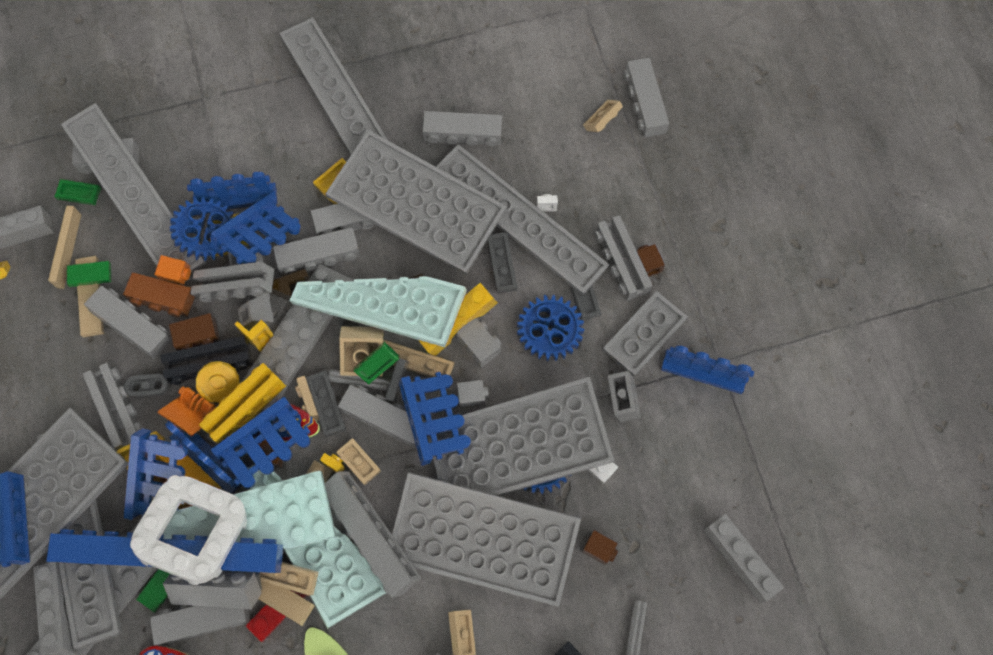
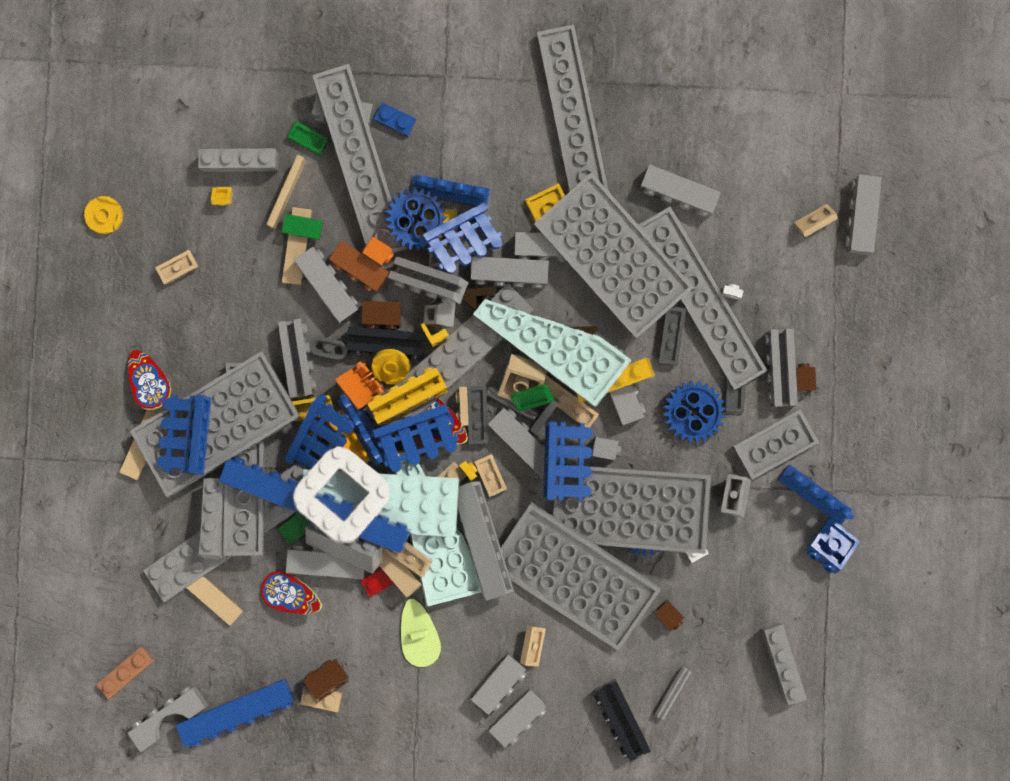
camera: 15 degrees right, 15 degrees up
(162, 149) = (395, 119): none -> blue plate
(743, 416) = (832, 546): none -> blue plate

